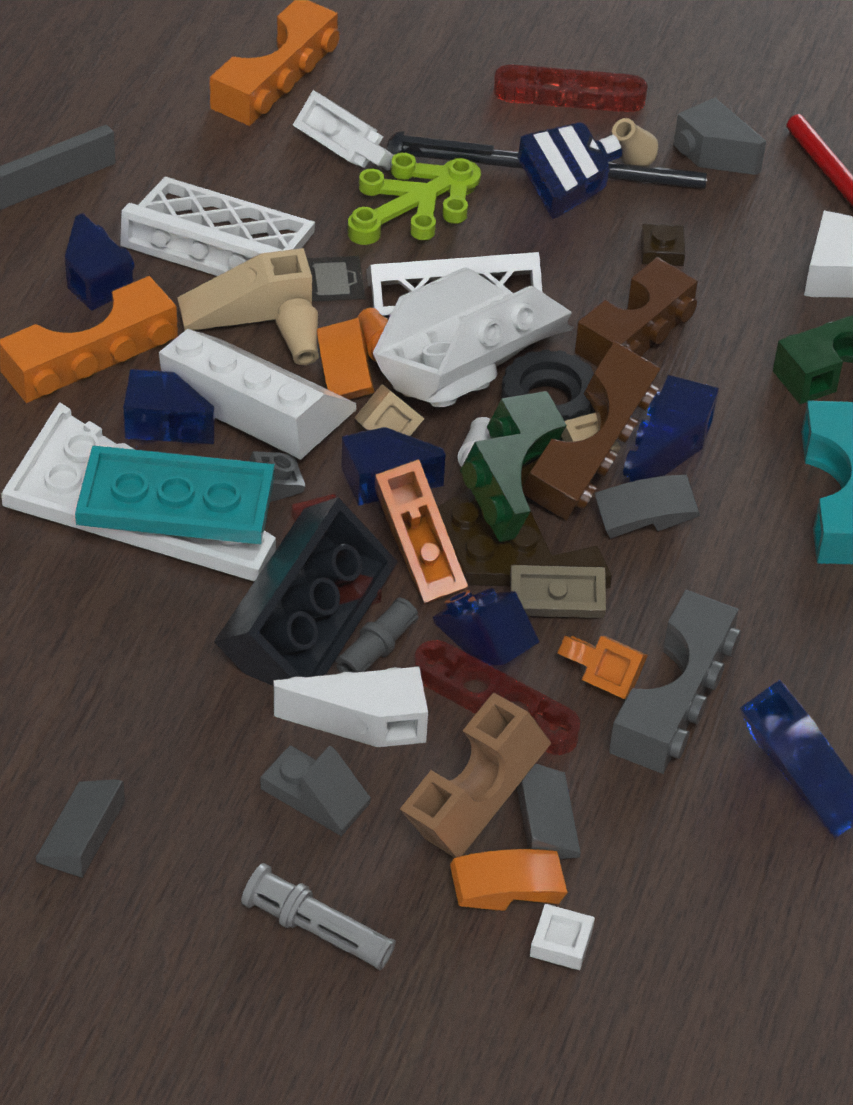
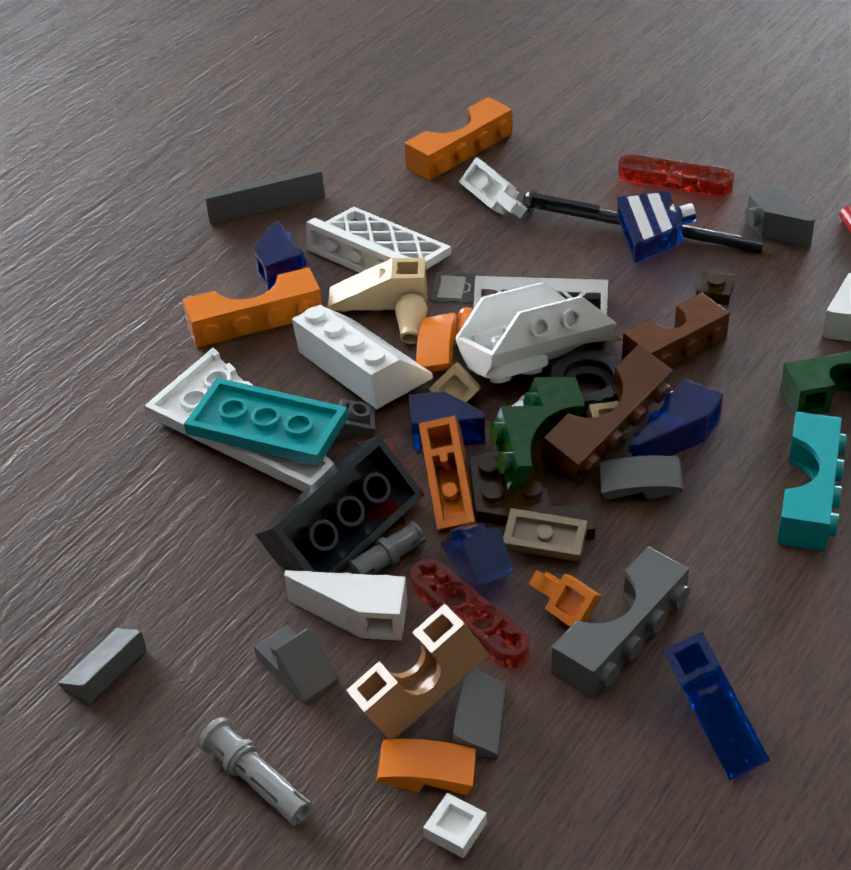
camera: 20 degrees right, 5 degrees down
(166, 409) = (287, 361): clear blue slope -> none
(456, 177) = (568, 227): lime plant -> none
(637, 144) = (710, 213): tan cone -> none

